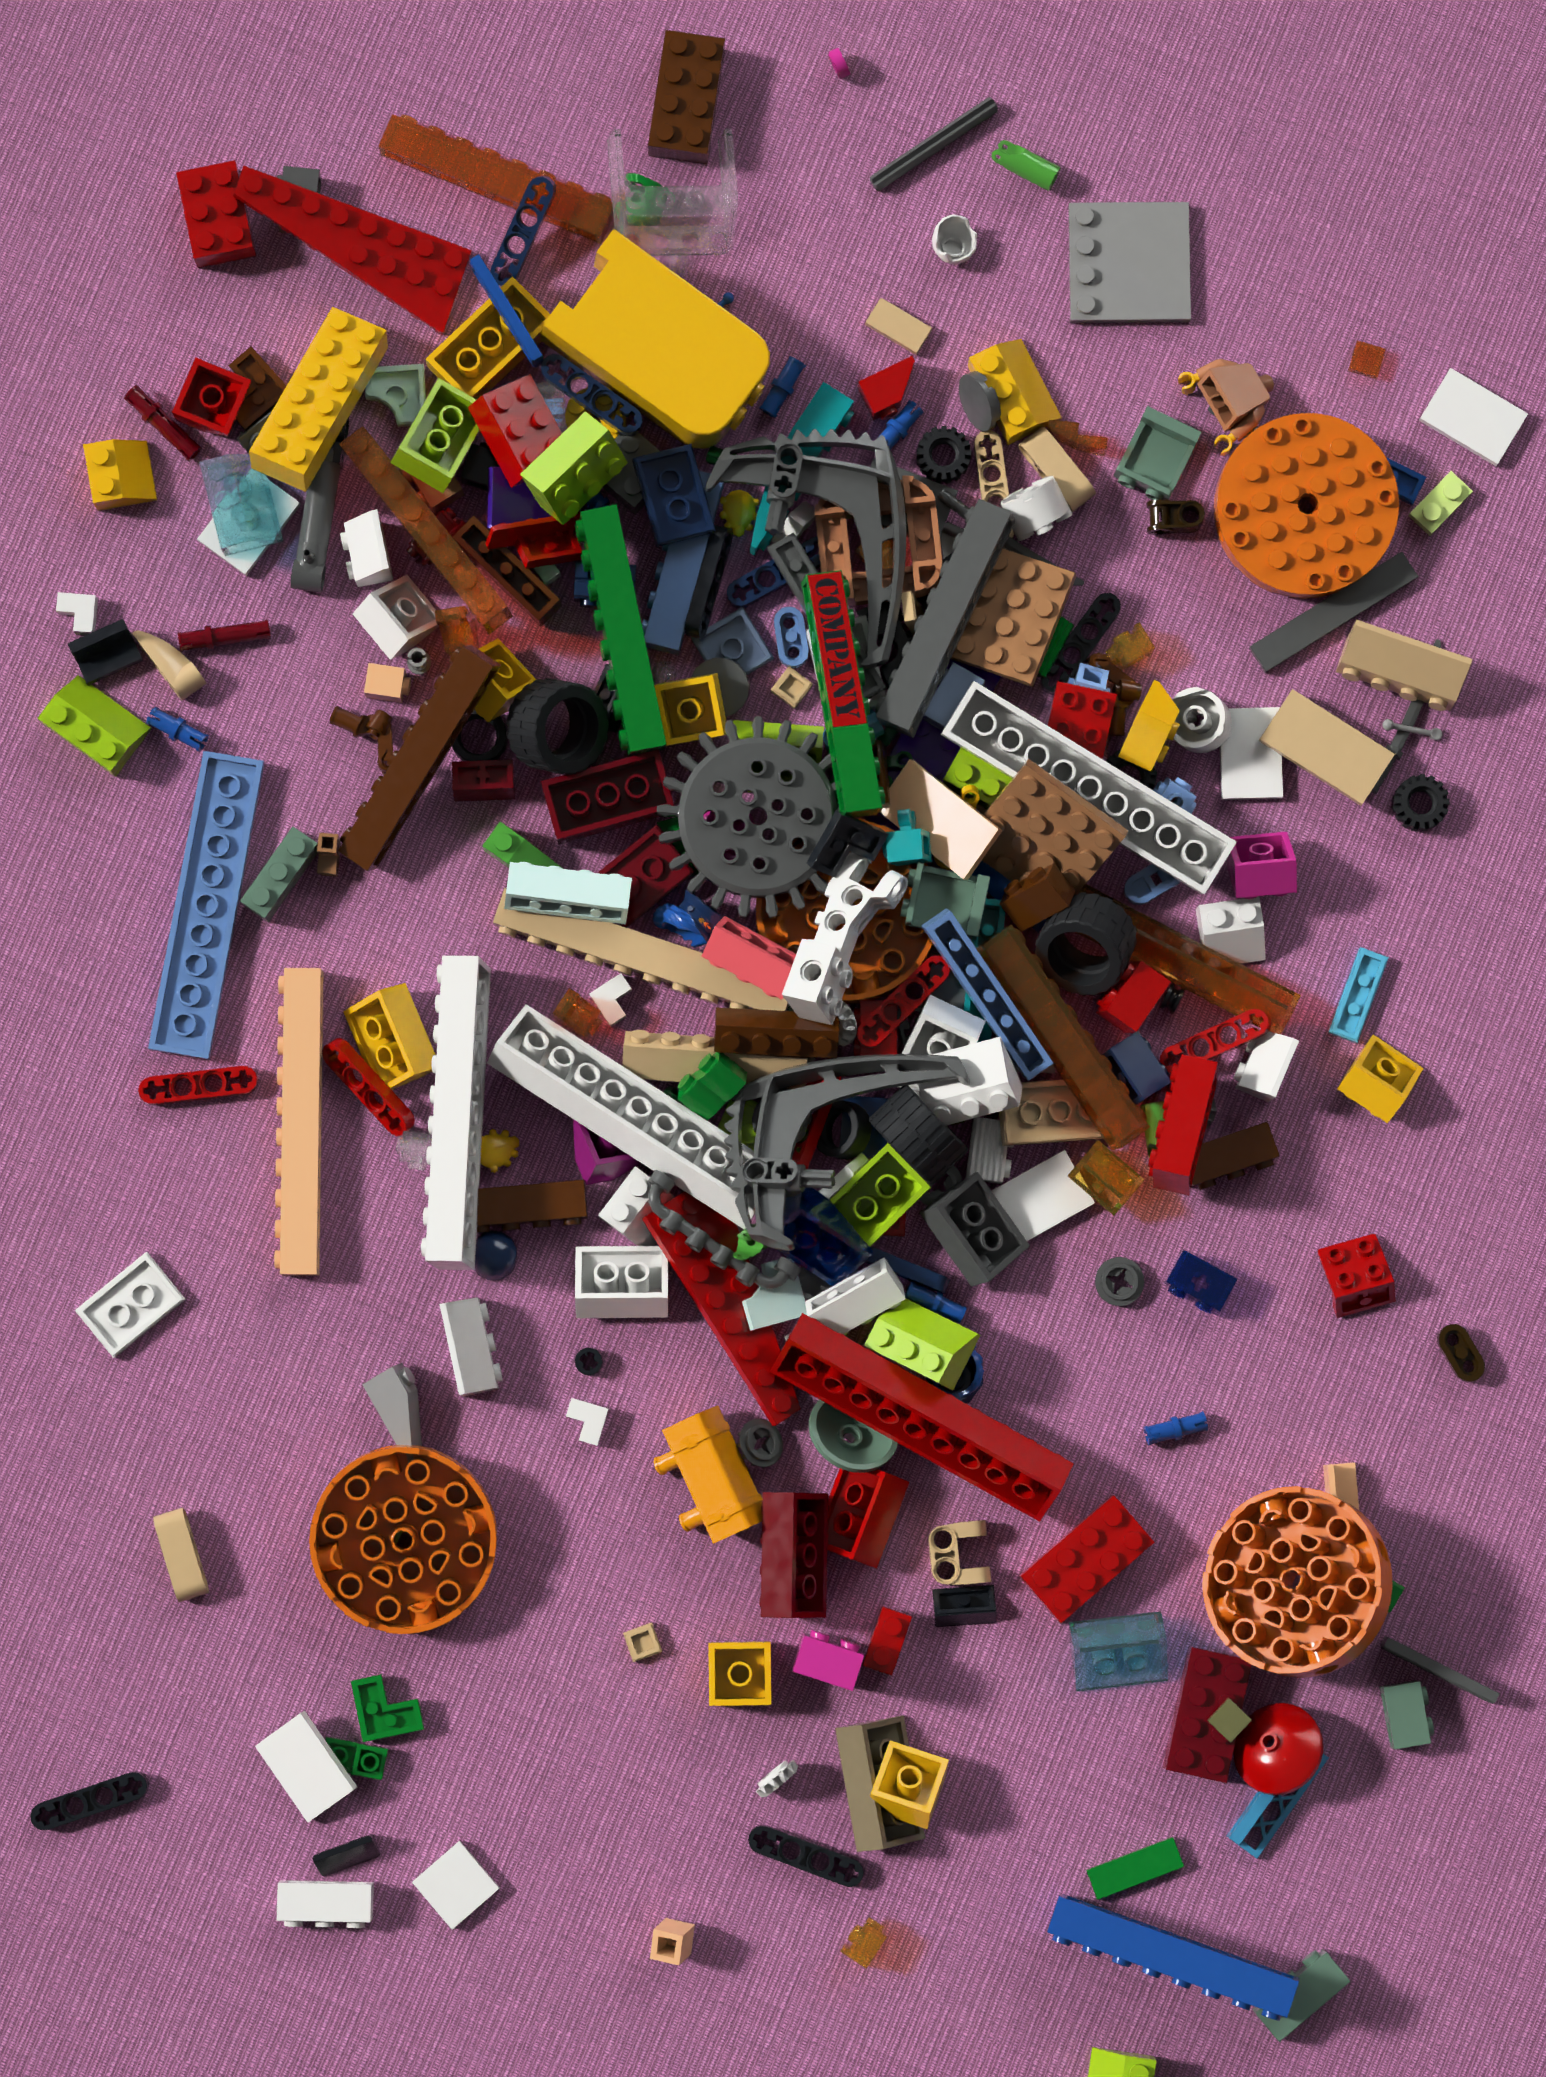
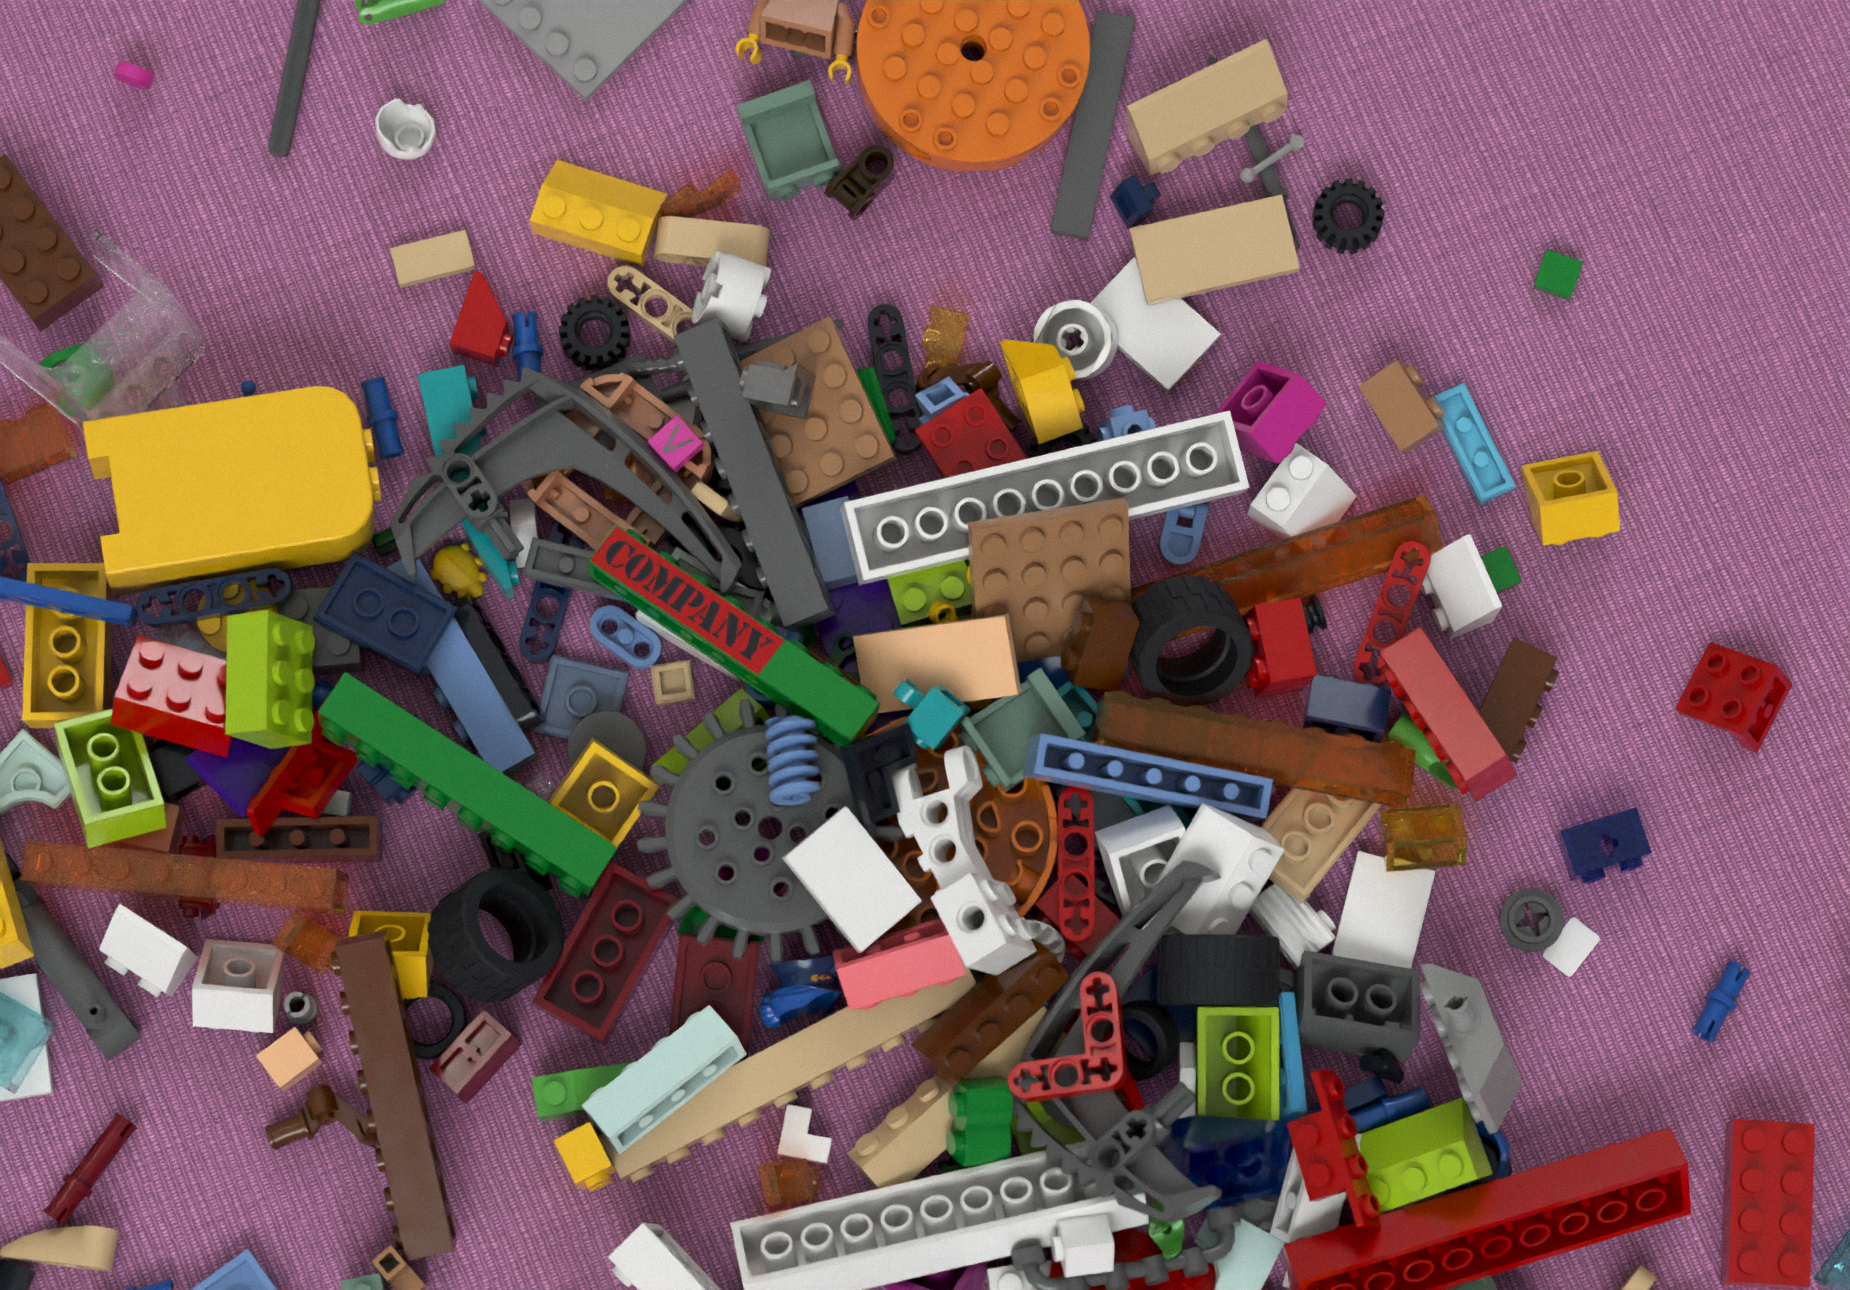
camera: 45 degrees left, 5 degrees down
(485, 892) = (586, 1157): none -> yellow brick
(696, 1204) = (1084, 1245): none -> white brick
(772, 887) = (852, 879): none -> white tile
(803, 790) = (790, 759): none -> medium blue piece
(804, 1111) = (1096, 1052): none -> red beam
(877, 1290) = (1330, 1152): none -> red bracket
(900, 1229) = (1291, 1079): none -> dark azure tile
(920, 558) = (676, 443): none -> dark pink tile
(956, 1275) = (1382, 1066): none -> black bar
(979, 401) = (579, 251): dark grey tile -> none
(1004, 583) = (778, 388): none -> flat silver window
(1014, 1314) = (1472, 1043): none -> light grey slope
(1127, 1318) = (1571, 947): none -> white sticker
(1298, 1077) = (1501, 569): none -> green tile
(1311, 676) = (1134, 201): none -> dark blue tile
(1341, 936) = (1403, 405): none -> medium nougat brick
(1503, 951) = (1558, 274): none -> green tile

